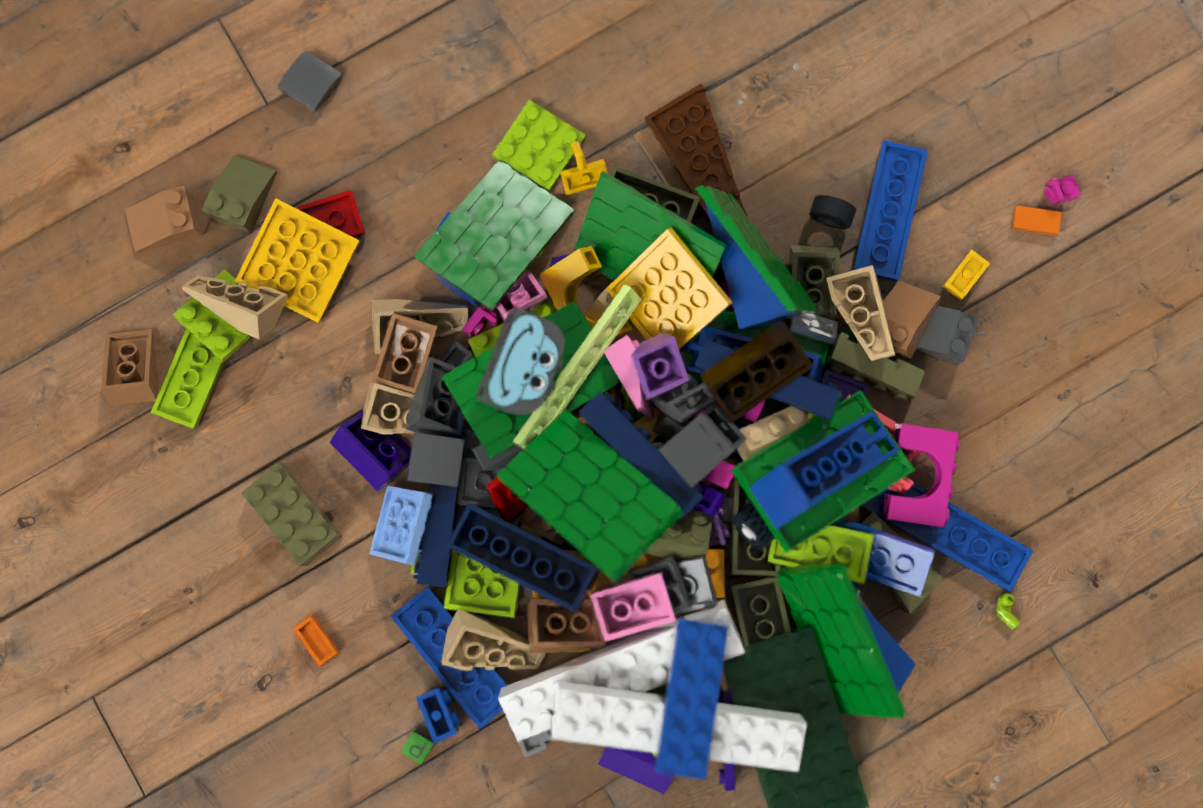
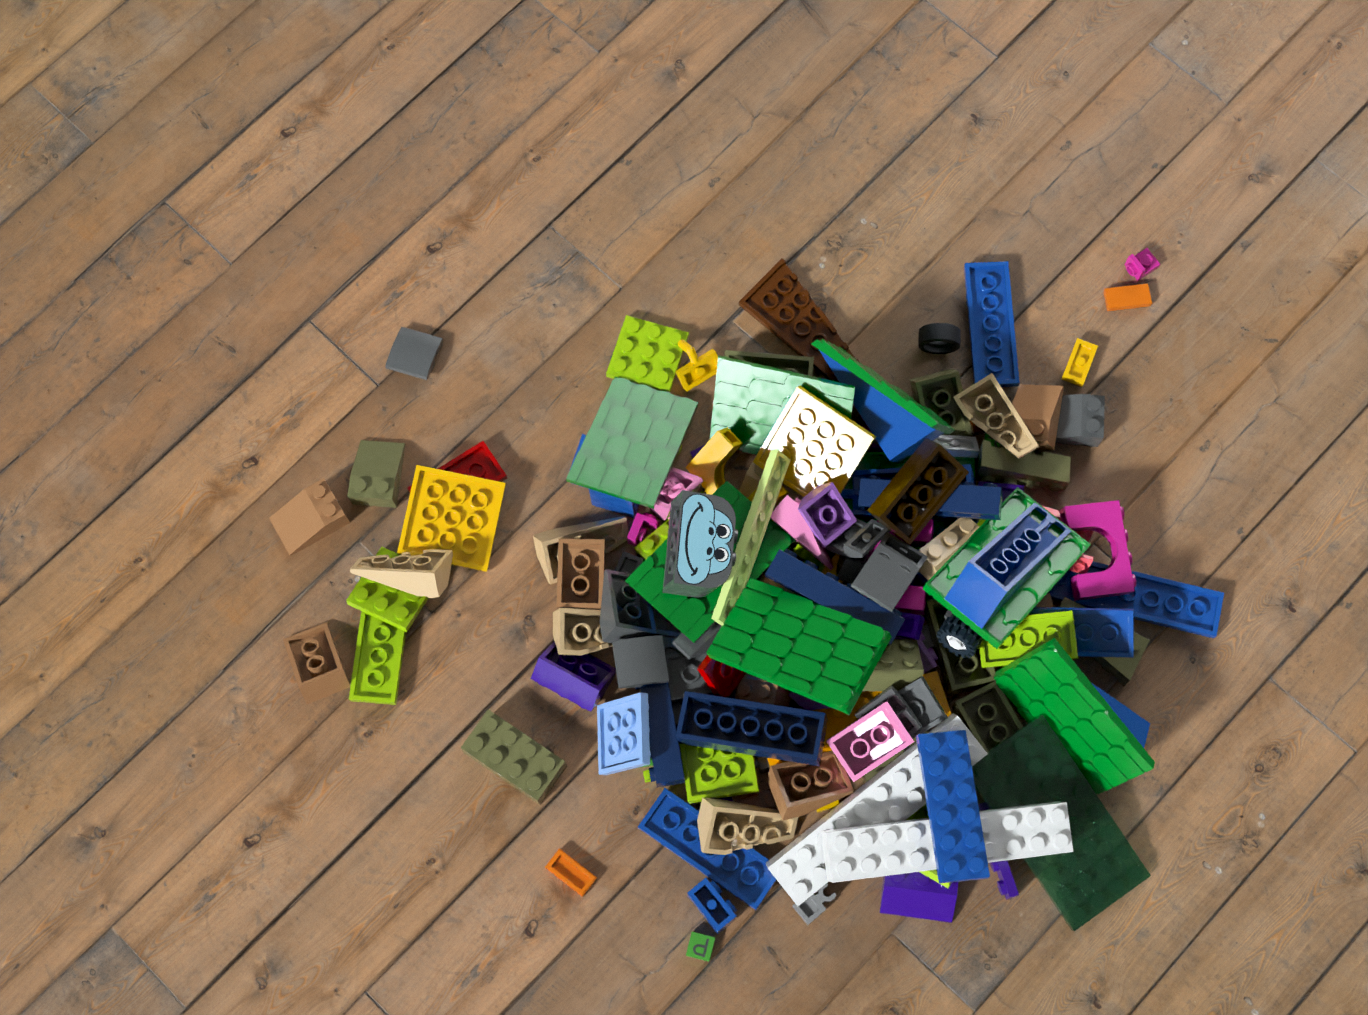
camera: 15 degrees left, 10 degrees down
(1003, 610) = (1215, 655): lime arm -> none

